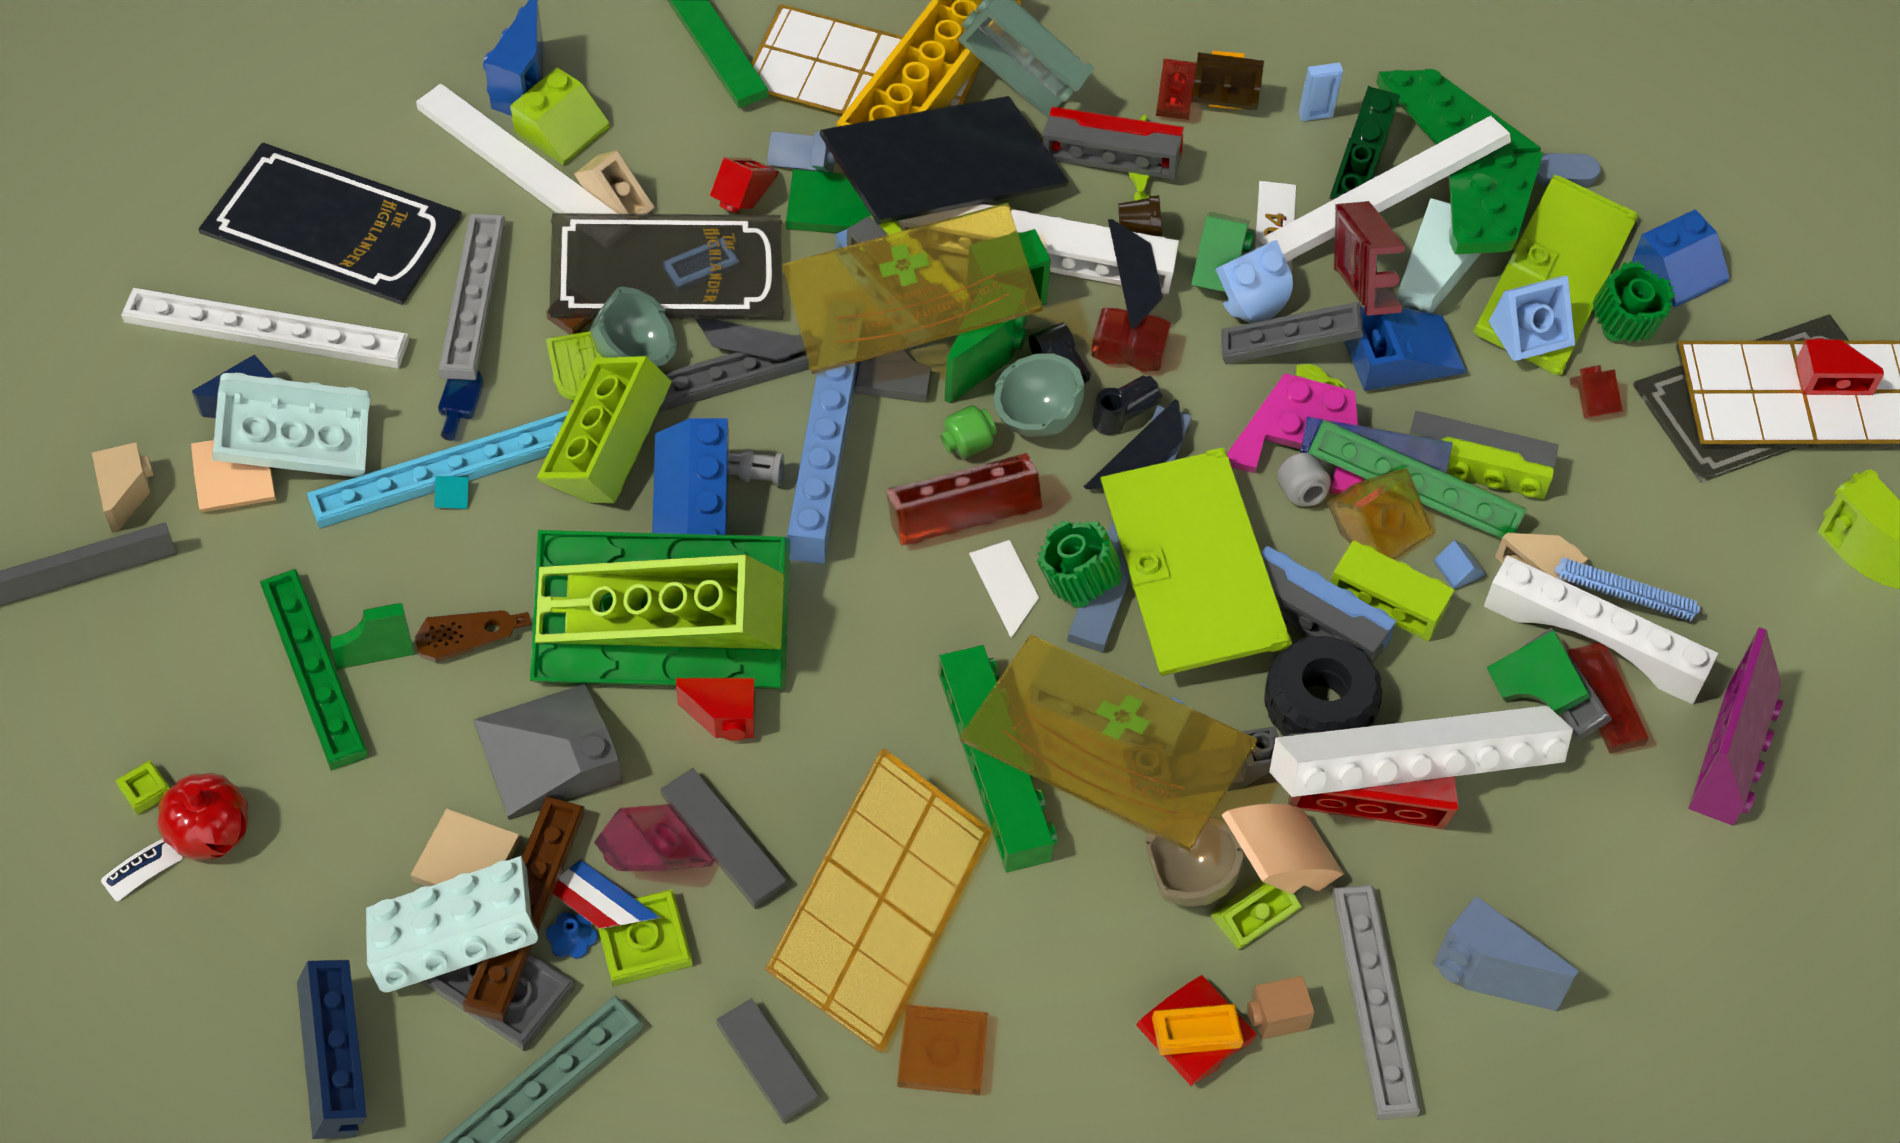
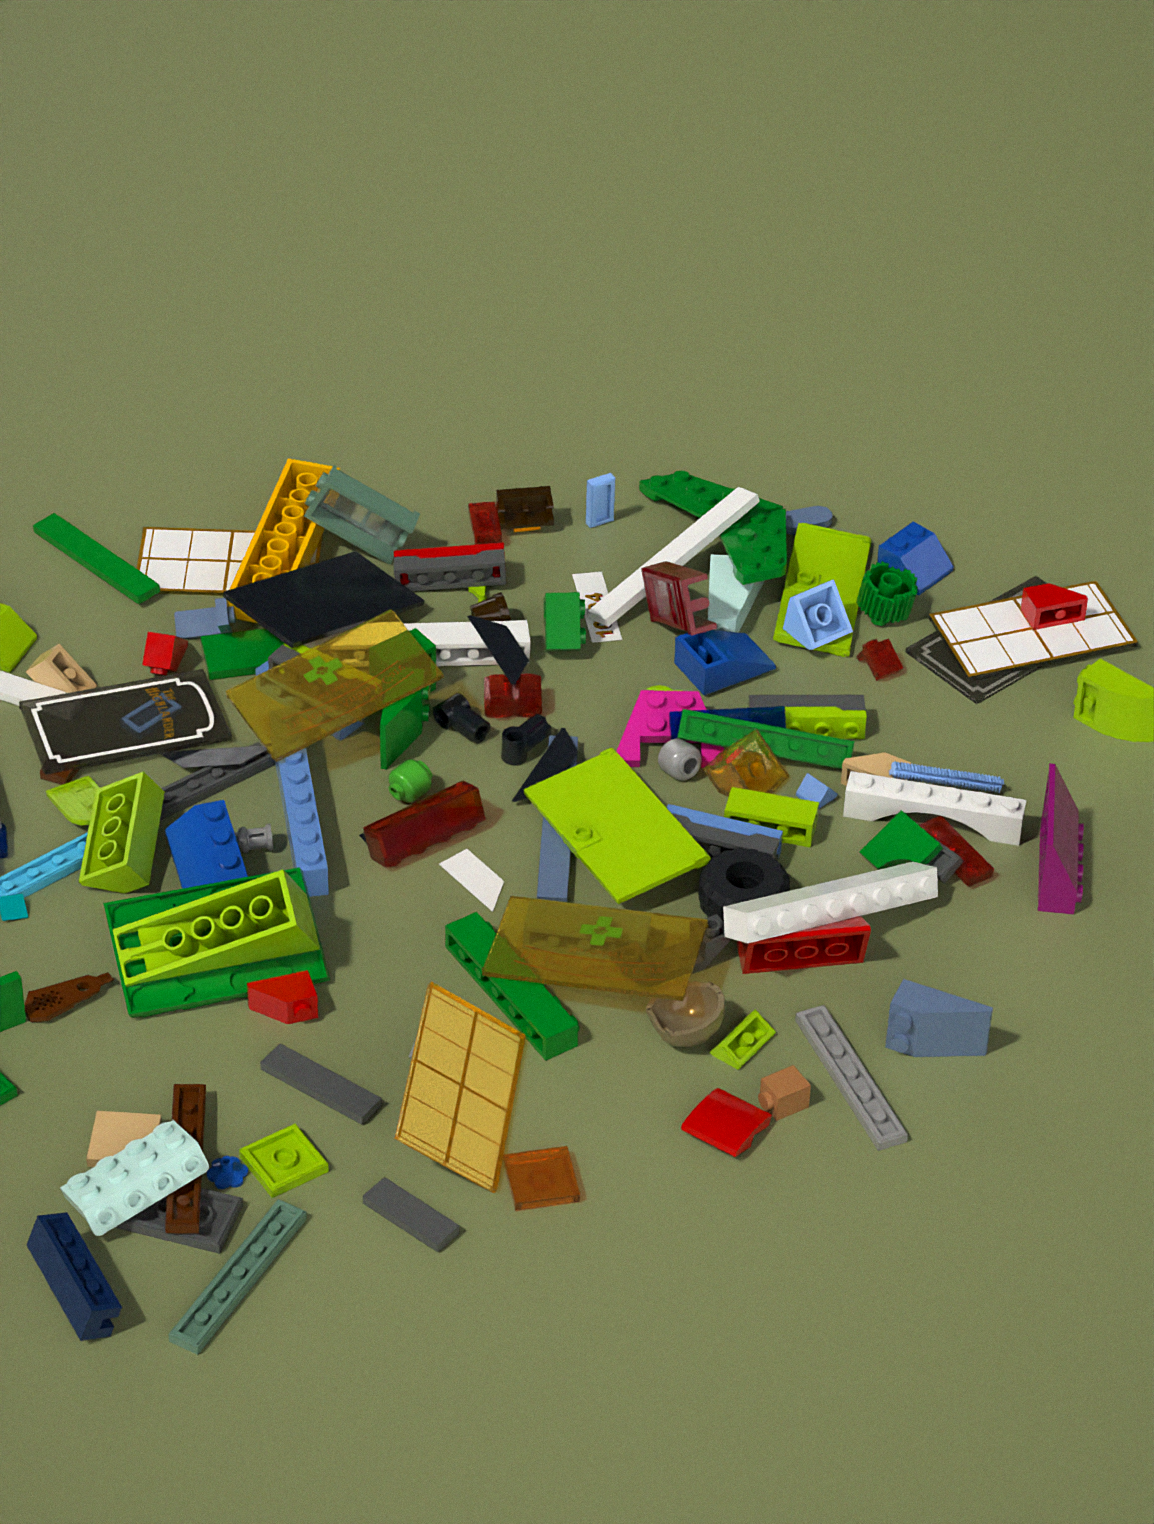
camera: 15 degrees left, 15 degrees down
(548, 750) = (163, 1054): dark grey slope -> none
(599, 898) = (240, 1141): sticker -> none
(633, 326) = (115, 759): sand green cylinder -> none
(651, 841) = (265, 1096): clear pink slope -> none
(894, 377) = (335, 758): dark grey tile -> none
(1039, 395) = (457, 743): sand green cylinder -> none
(1079, 562) = (529, 843): green brick -> none
(1197, 1029) = (728, 1116): light orange tile -> none
(1256, 283) = (598, 637): light blue slope -> none
(1283, 846) = (751, 987): light nougat slope -> none
(1292, 333) = (636, 663): dark grey tile -> none
(1366, 141) = (647, 526): dark green slope -> none

